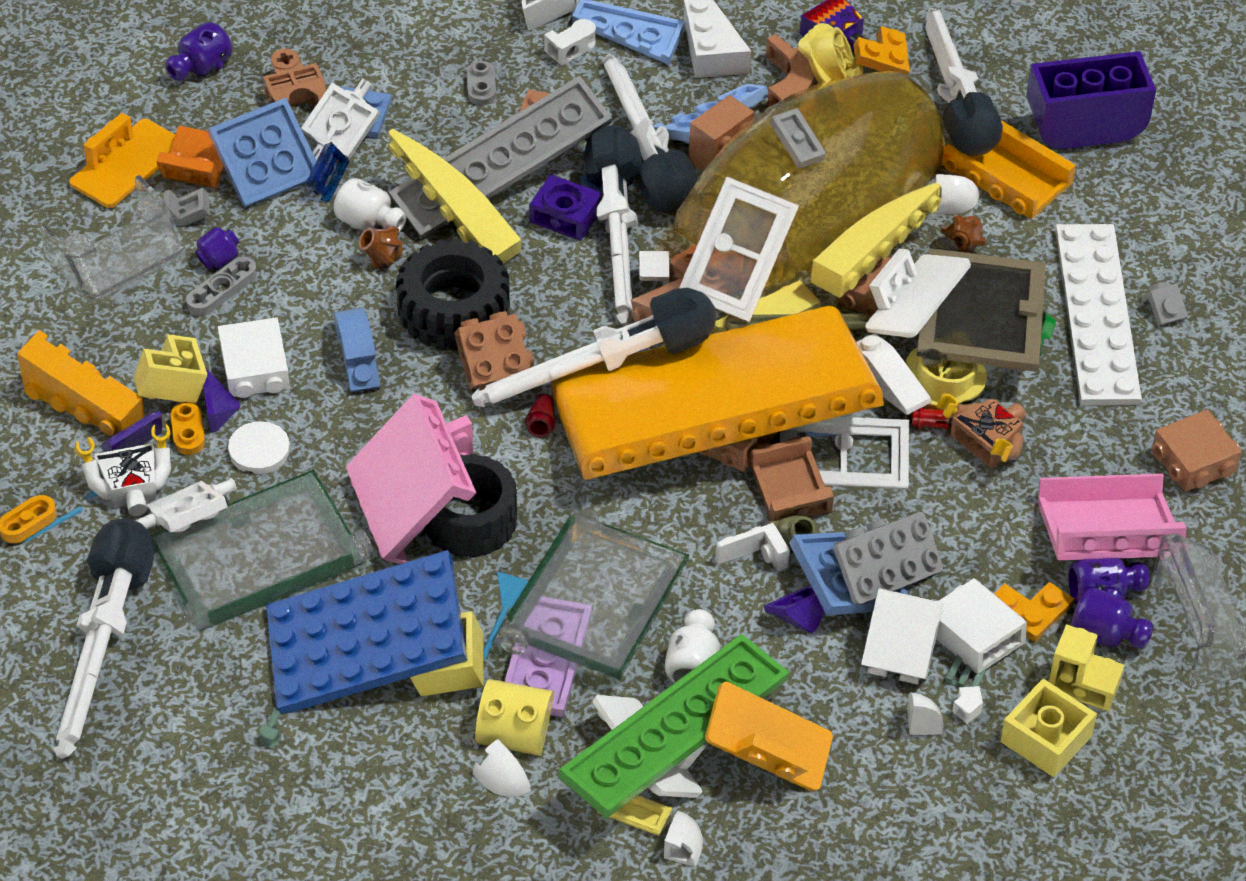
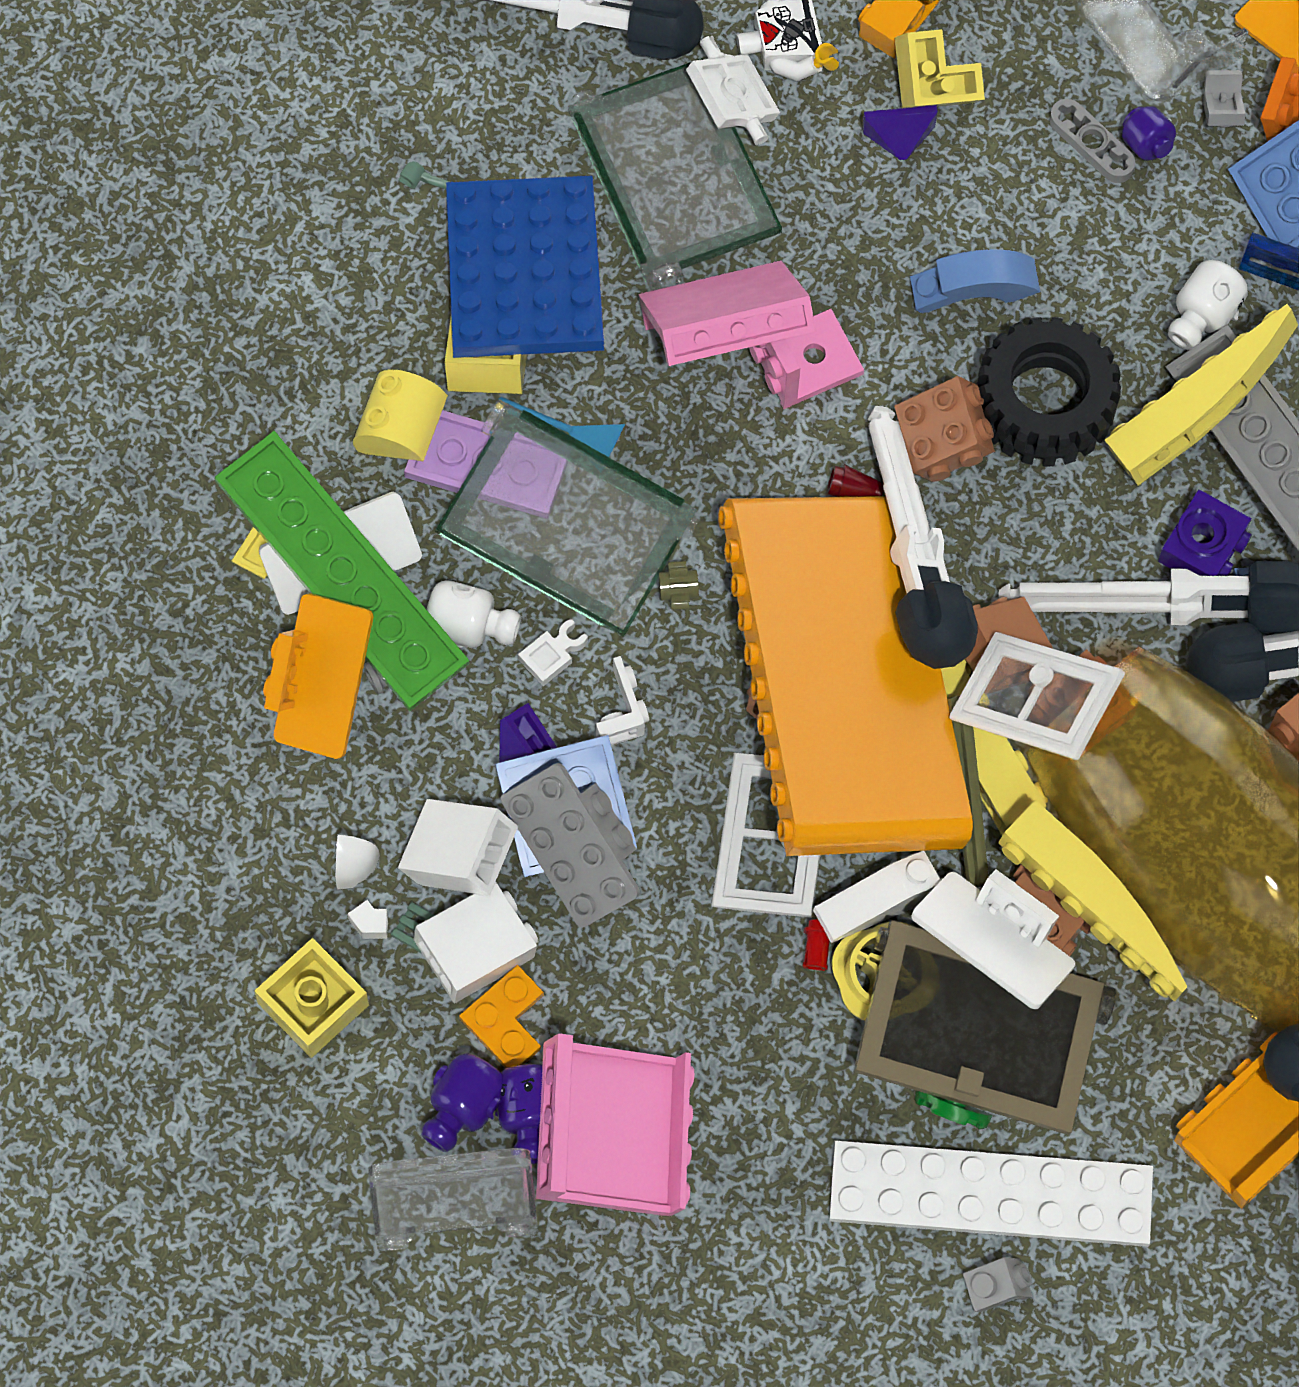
camera: 95 degrees right, 20 degrees up
(135, 434) = (850, 38): dark purple slope -> none
(187, 426) = (865, 99): light orange plate -> none
(253, 357) = (964, 169): white brick -> none
(259, 447) = (830, 176): white tile -> none
(381, 245) = (1140, 316): dark orange rock -> none
(484, 531) = (706, 429): black tyre -> none
(502, 772) = (333, 405): white brick -> none
(644, 517) = (678, 585): none -> olive gear
(654, 266) = (1083, 632): white panel -> none
(683, 840) = (222, 585): white brick -> none
(716, 600) = (550, 655): none -> white plate
(790, 480) = (717, 761): nougat panel -> none
(794, 526) = (639, 757): olive animal -> none
(798, 138) = (1185, 765): light grey plate -> none
(956, 194) = (1210, 1038): white brick -> none
(965, 233) = (1133, 1037): dark orange rock -> none
(986, 428) = (784, 1010): nougat torso -> none
(1082, 673) = (392, 1049): light yellow brick -> none
(1196, 450) = (725, 1265): nougat brick -> none

